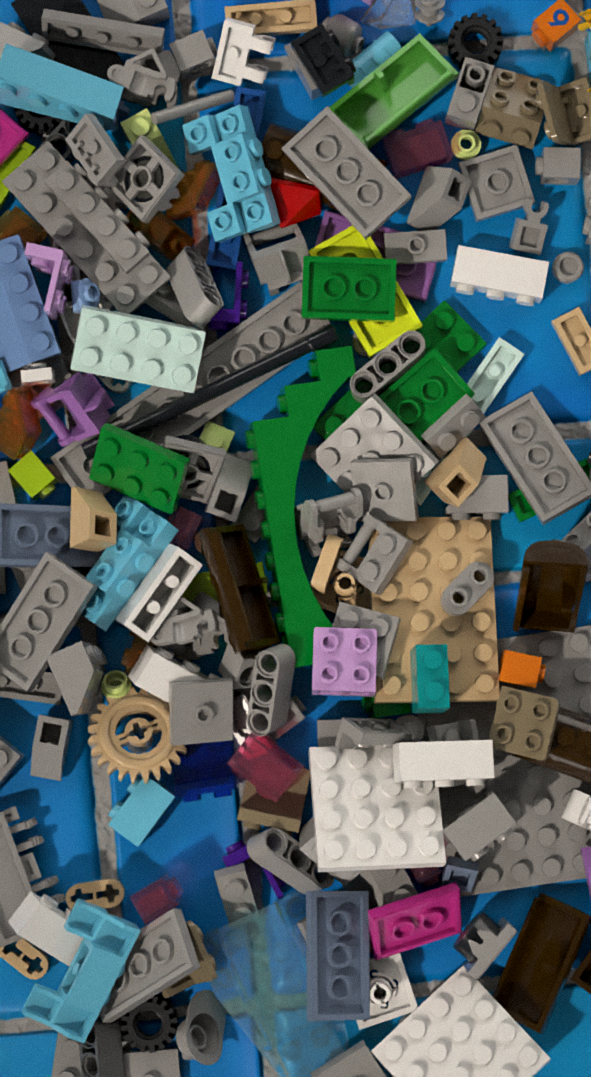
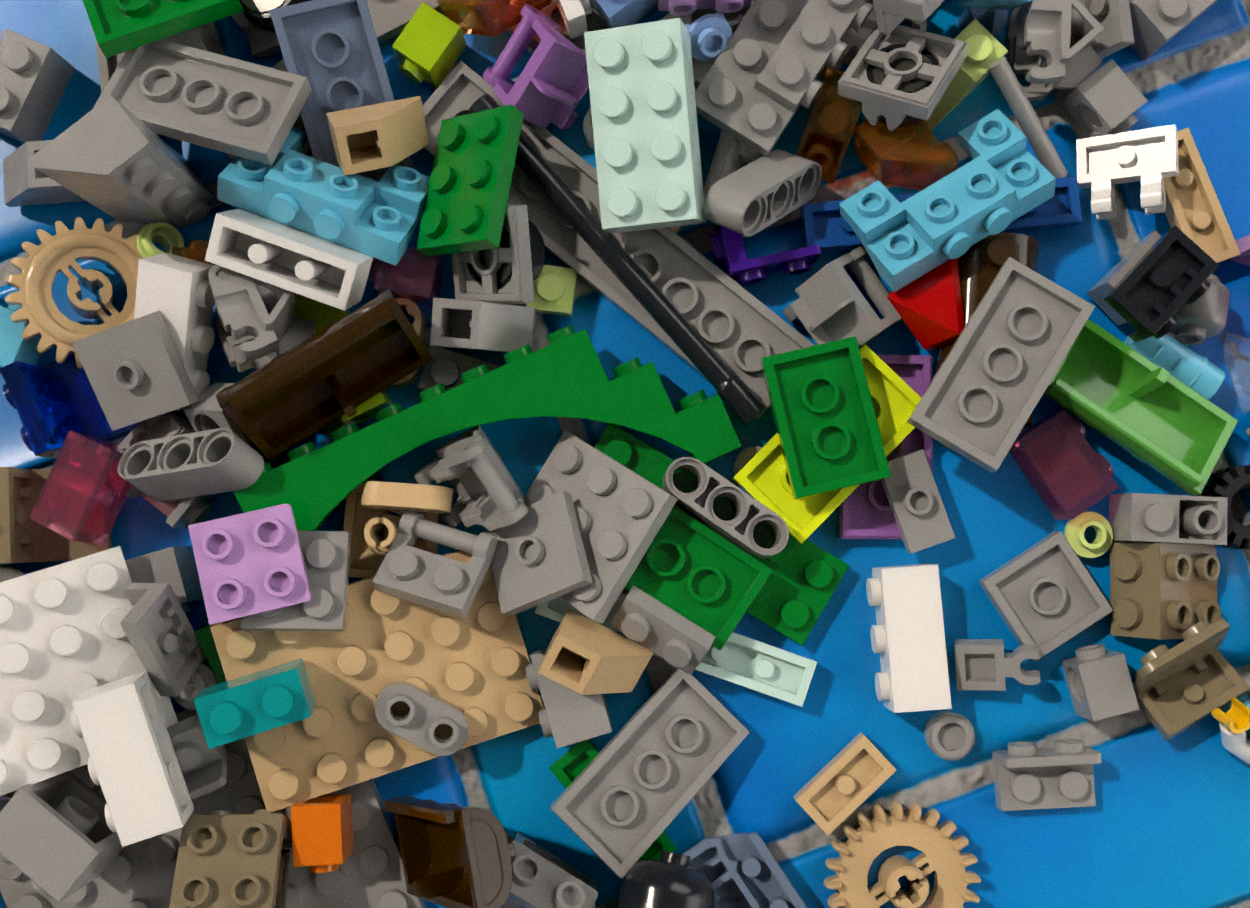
camera: 70 degrees right, 0 degrees up
(438, 198) = (1000, 515): light grey slope -> none

